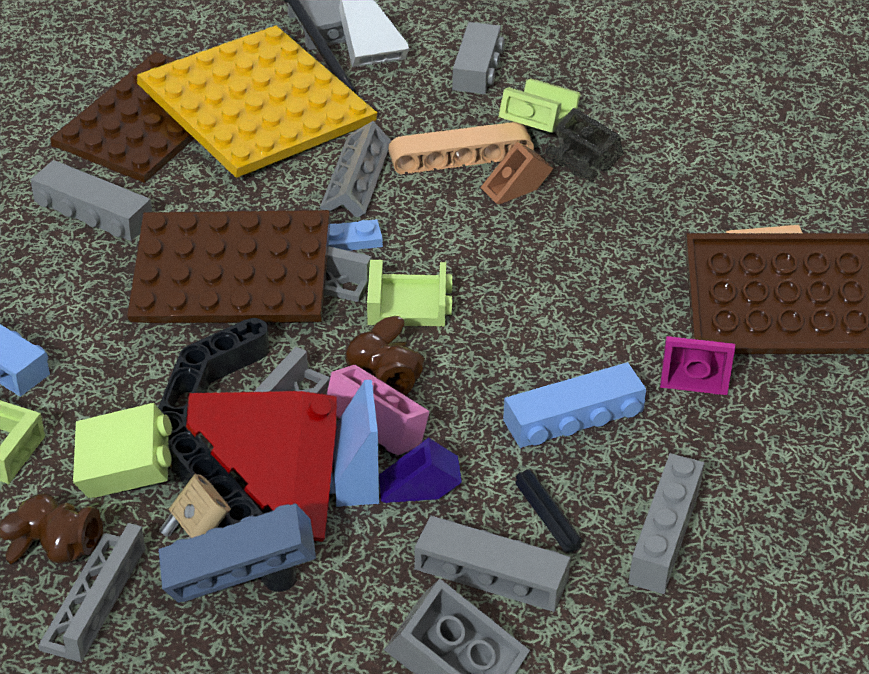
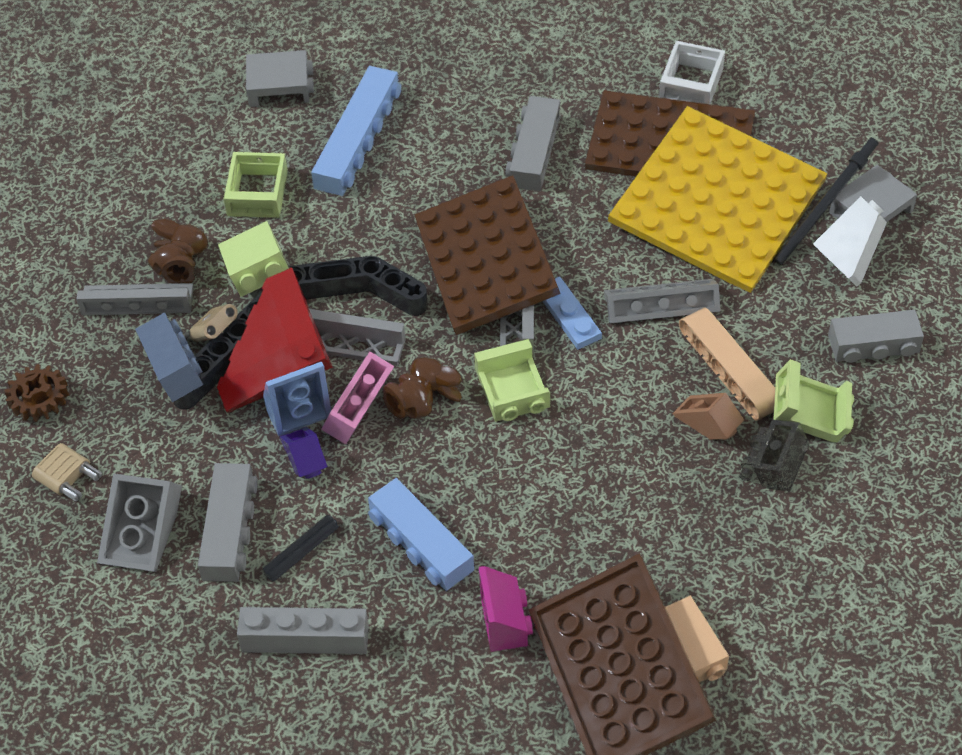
camera: 75 degrees right, 10 degrees up
(103, 68) = (688, 90): none -> white window

